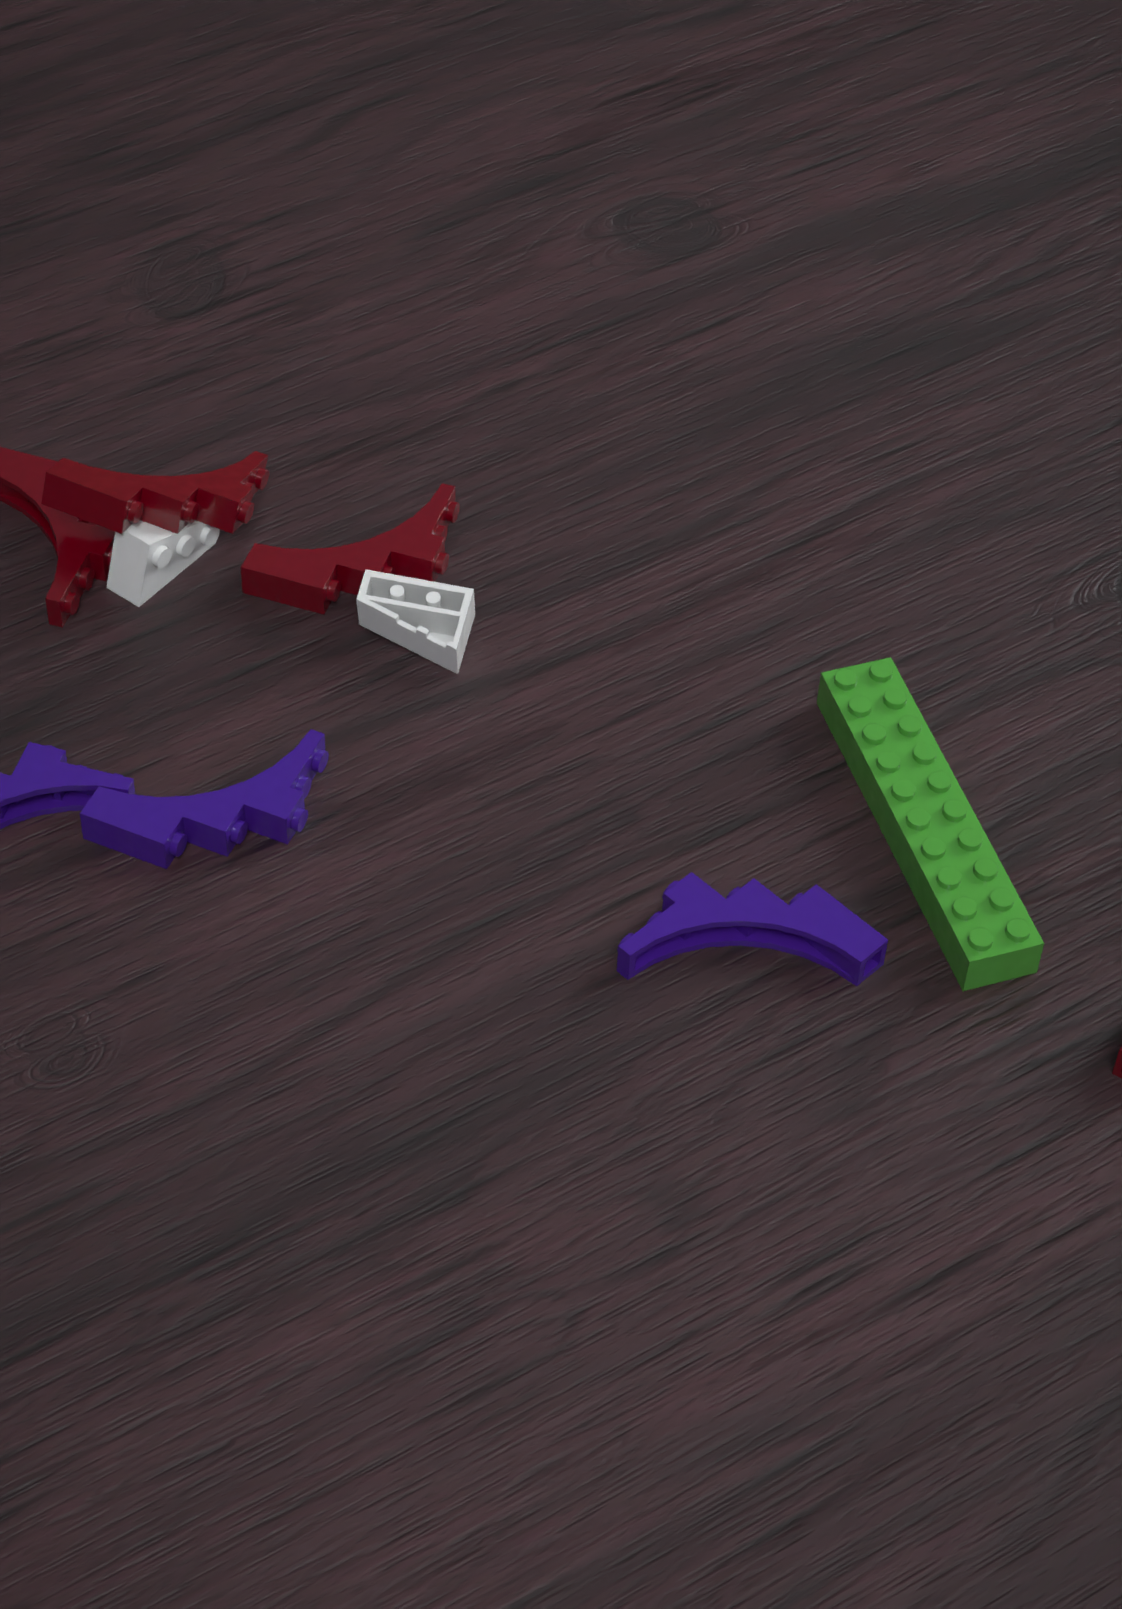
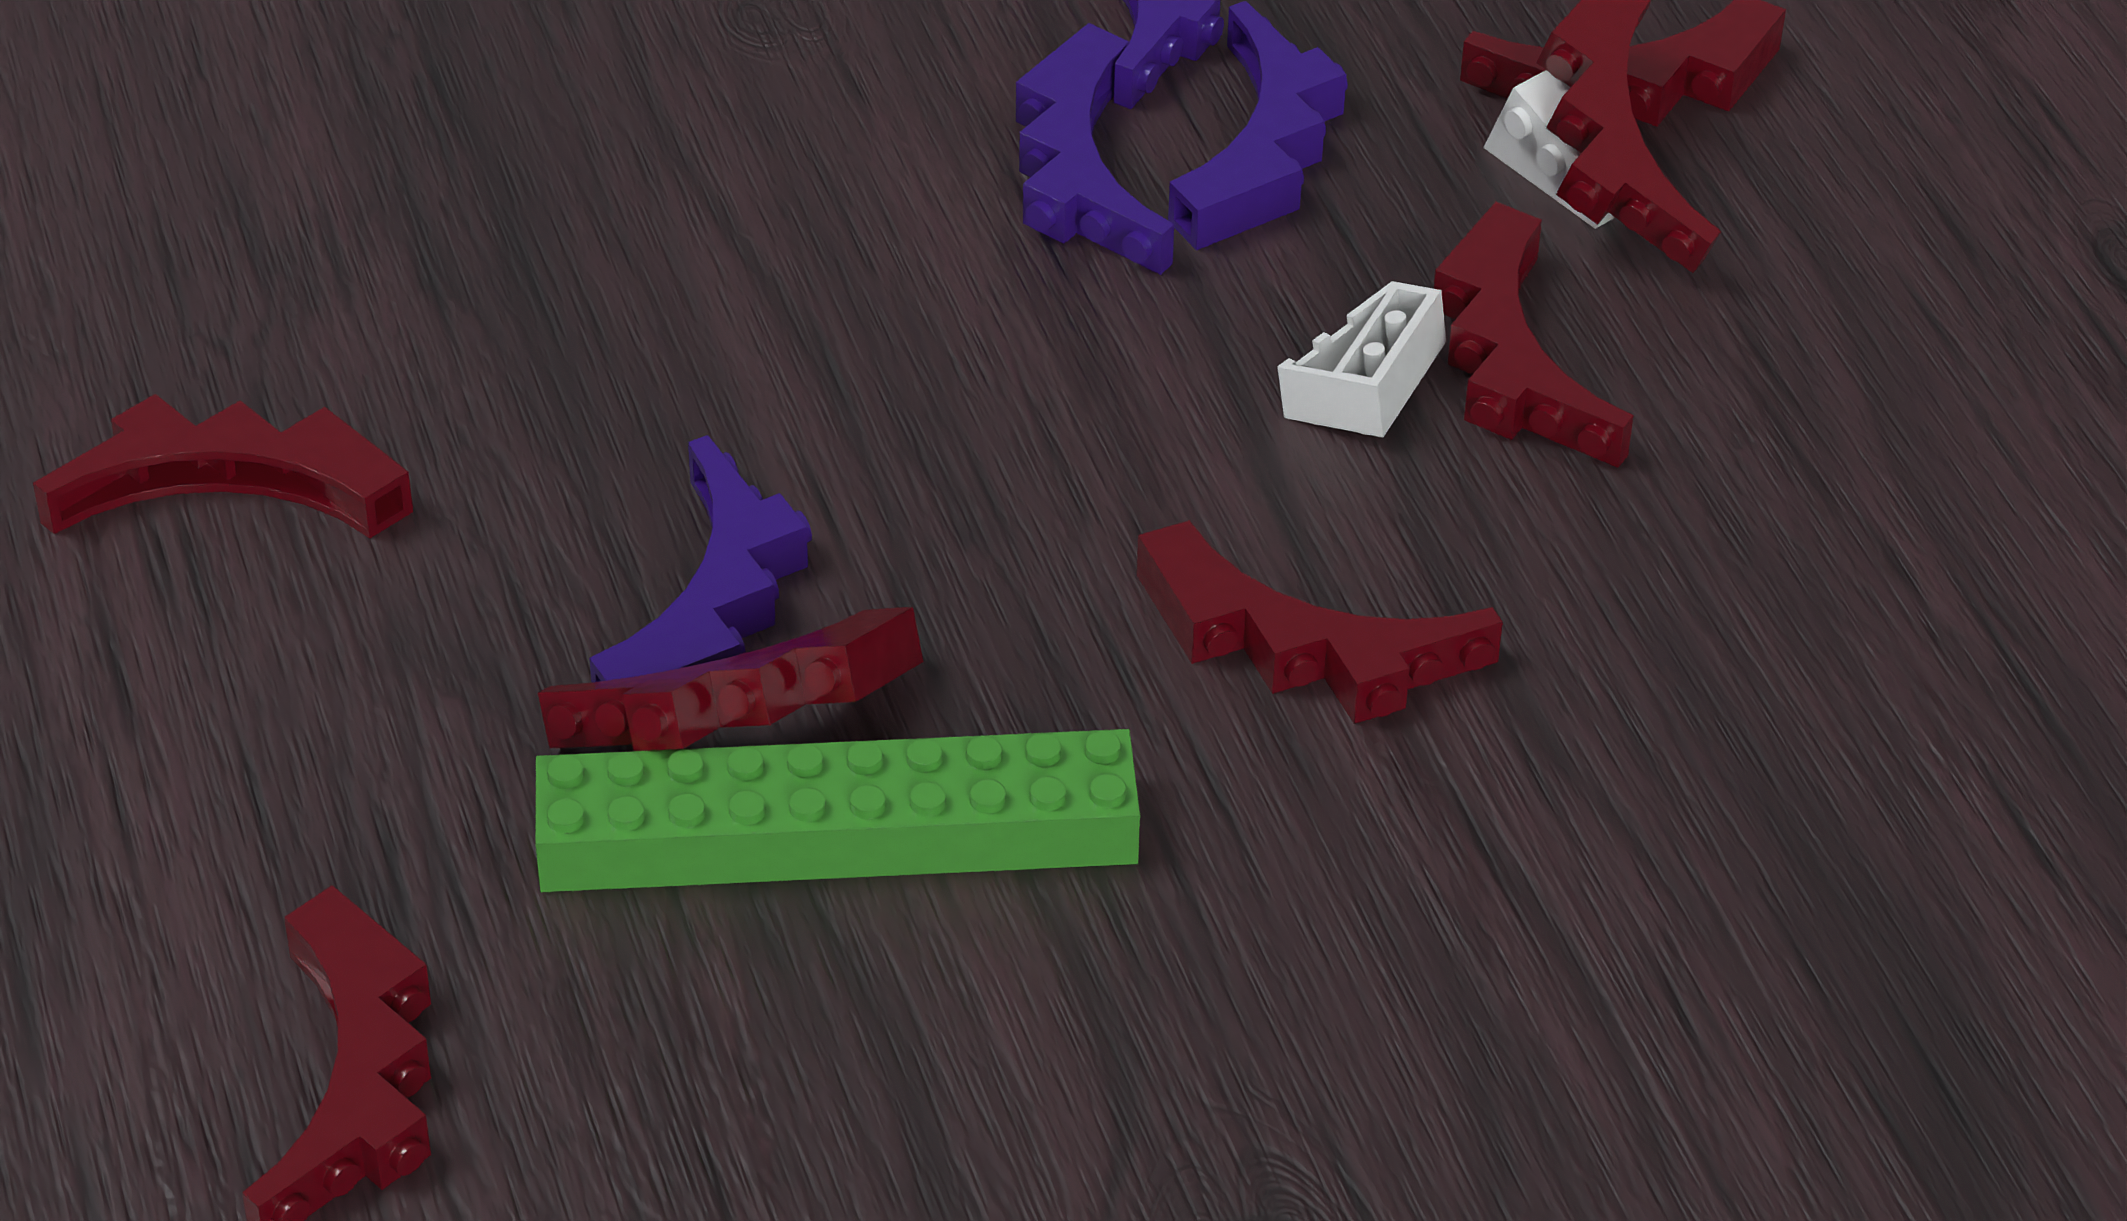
camera: 105 degrees right, 5 degrees down
(169, 700) = (1263, 166): none -> dark purple arch
(677, 661) = (1294, 643): none -> dark red arch
(710, 1253) = (234, 451): none -> dark red arch
(900, 892) = (738, 691): none -> dark red arch

